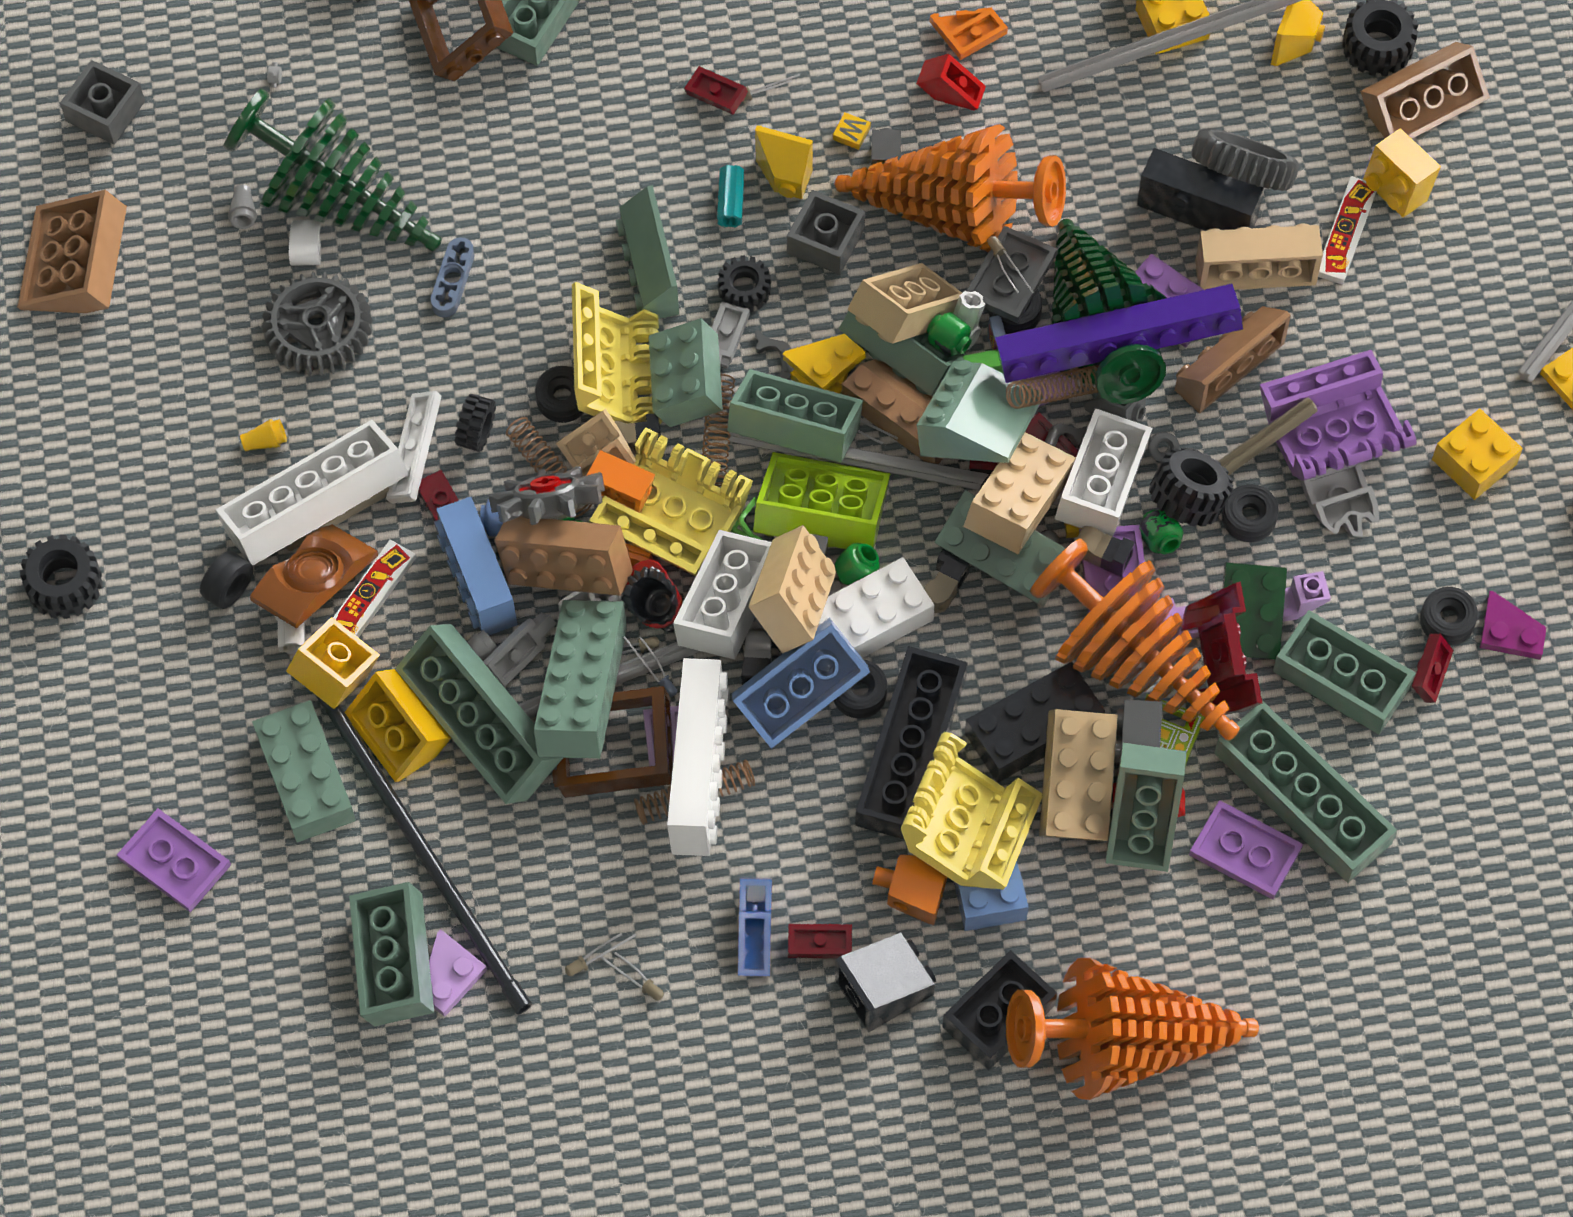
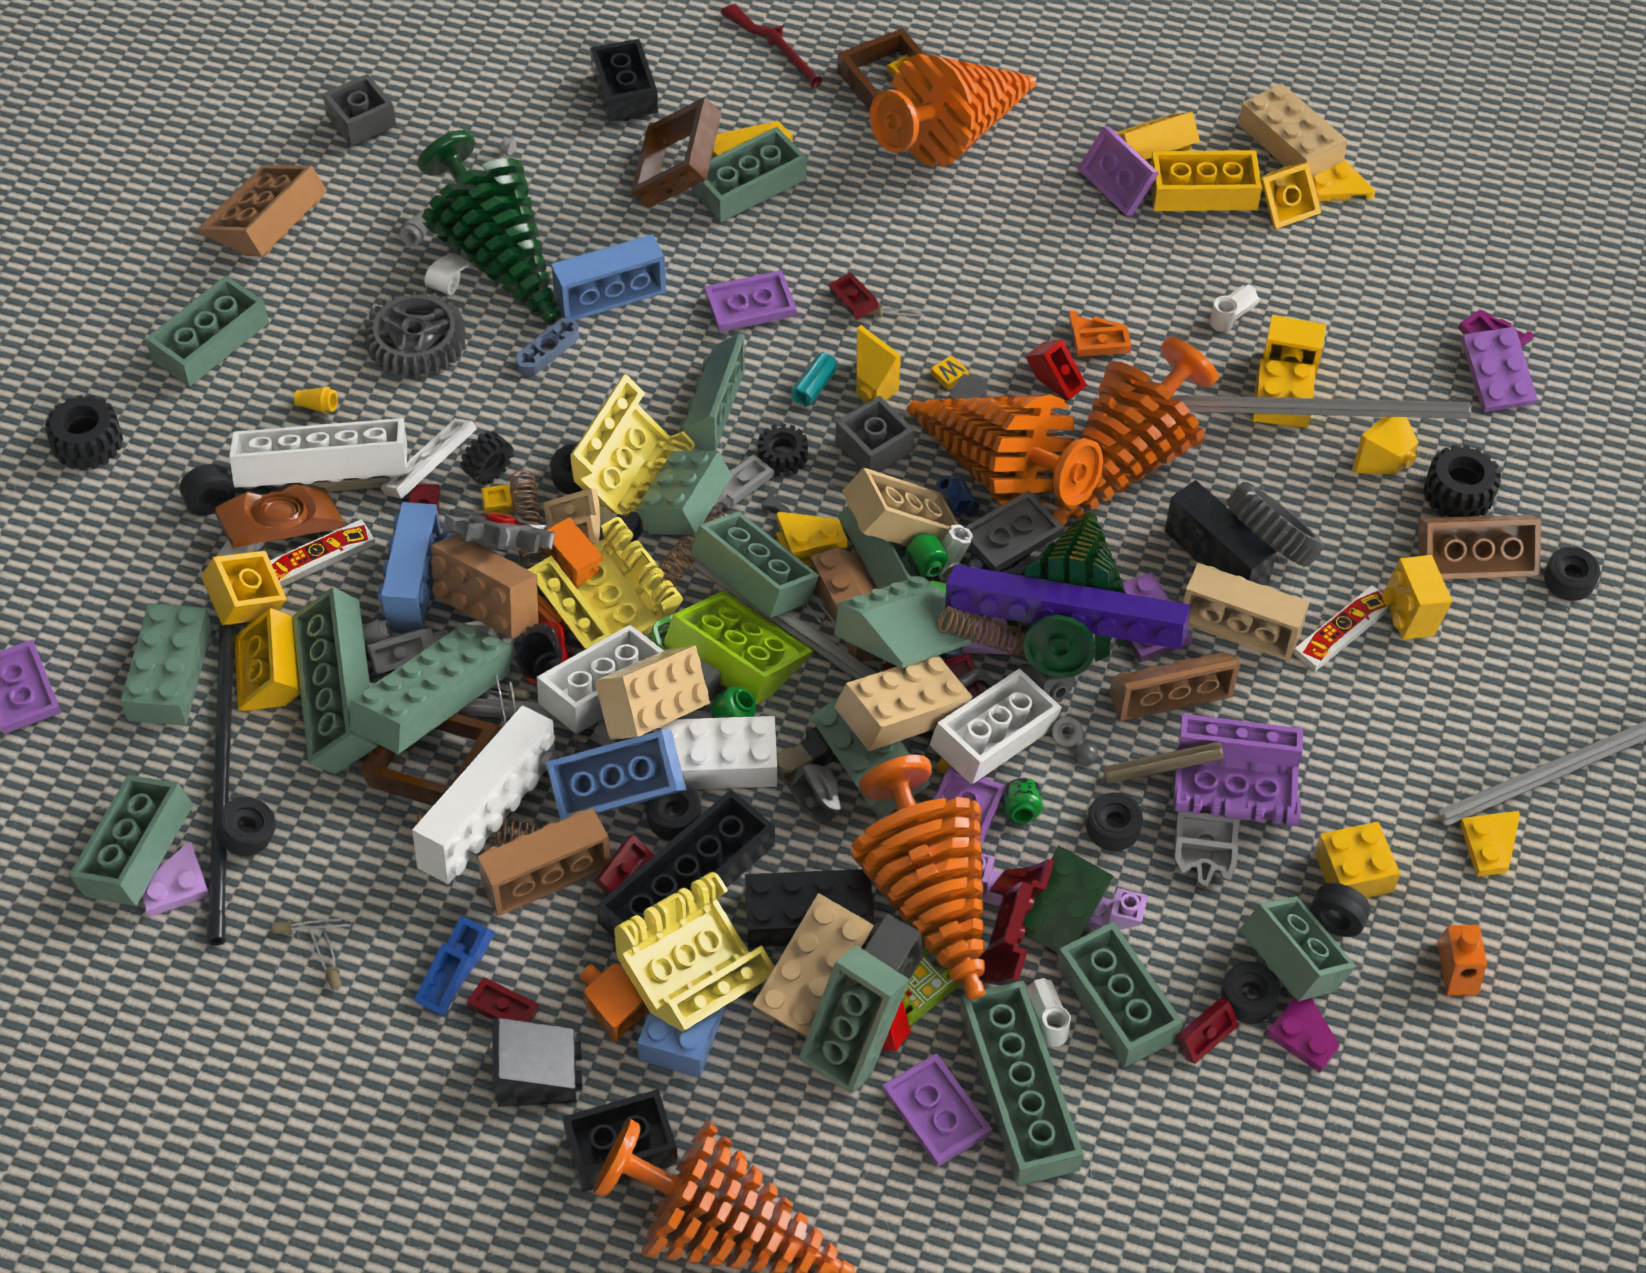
camera: 25 degrees right, 10 degrees down
(111, 414) = (207, 330): none -> sand green brick
(474, 178) = (609, 278): none -> medium blue brick
(479, 906) = (242, 842): none -> black tyre
(504, 459) = (497, 499): none -> yellow tile
(620, 140) = (750, 301): none -> medium lavender plate
(779, 792) = (544, 861): none -> medium nougat brick
(849, 763) = (623, 864): none -> dark red plate
(939, 259) = (957, 495): none -> dark blue axle
(978, 611) = (816, 792): none -> dark grey hand
(999, 250) = (1010, 506): piece -> none
(1069, 109) = (1141, 422): none -> orange plant
(1106, 550) = (952, 783): leg -> none
(1191, 487) = (1068, 772): black tyre -> none
(1293, 714) = (1049, 1011): none -> white piece
(1471, 558) = (1297, 948): none -> sand green brick
(1487, 505) = (1340, 909): none -> black tyre
(1522, 69) = (1565, 586): none -> black tyre

